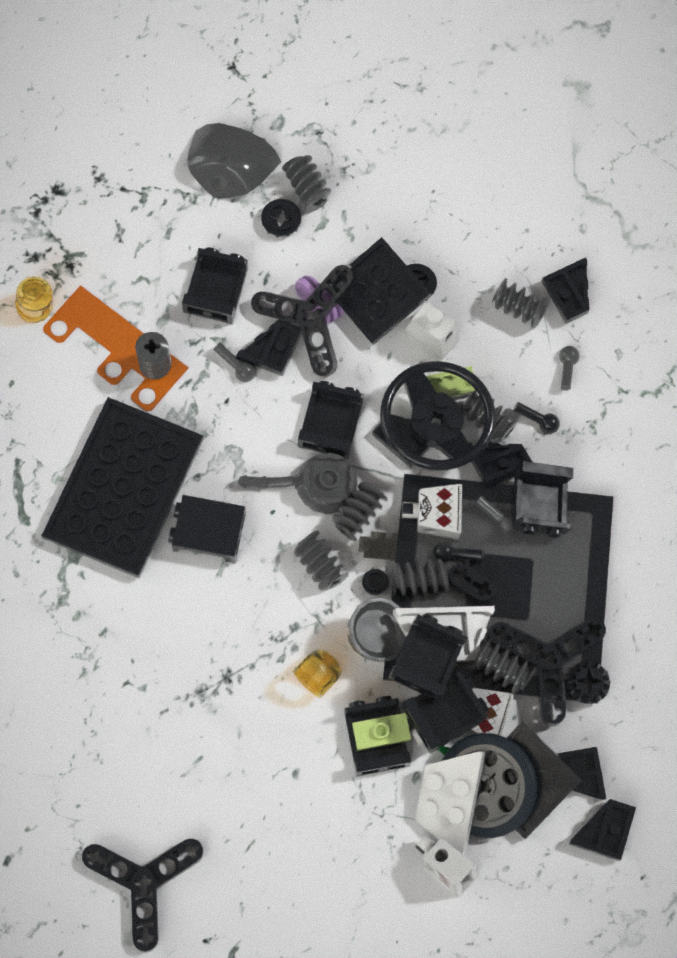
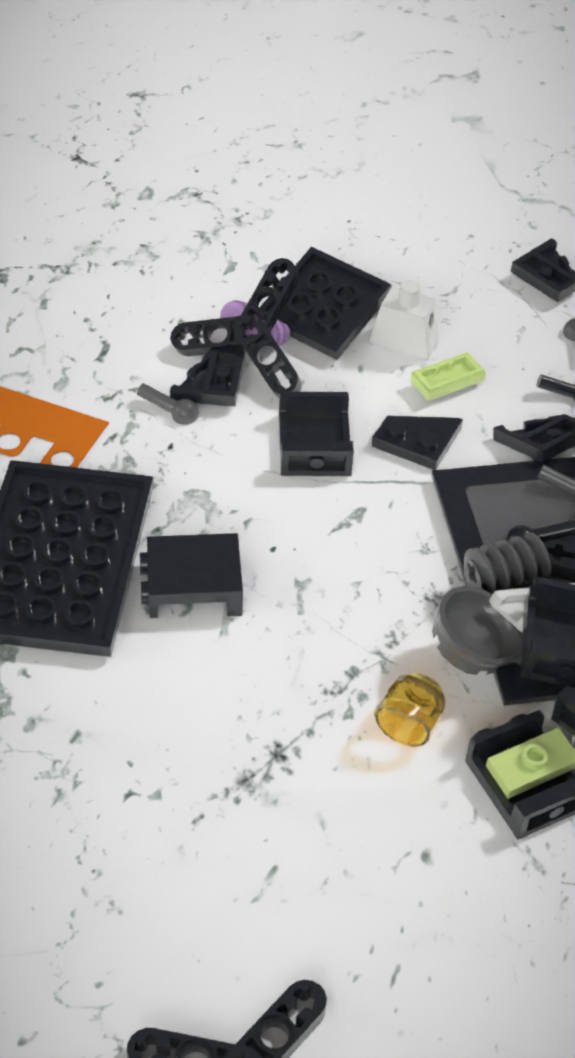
camera: 15 degrees left, 25 degrees down
(153, 355) = (61, 401): dark grey piece -> none
(216, 285) = (119, 333): black panel -> none
(248, 158) = (120, 224): dark grey piece -> none
(273, 210) = (190, 259): black gear -> none
(306, 182) = (200, 225): dark grey piece -> none
(319, 563) = (362, 583): dark grey piece -> none
(321, 482) = (327, 498): dark grey piece -> none
(357, 509) = (391, 515): dark grey piece -> none
(375, 582) = (439, 587): black plate -> none
(378, 546) = (434, 548): clear smoke brick -> none
(428, 405) = (449, 402): black piece -> none
(437, 511) = (496, 492): white torso -> none
(476, 410) = (511, 393): dark grey piece -> none
(519, 303) = (497, 286): dark grey piece -> none

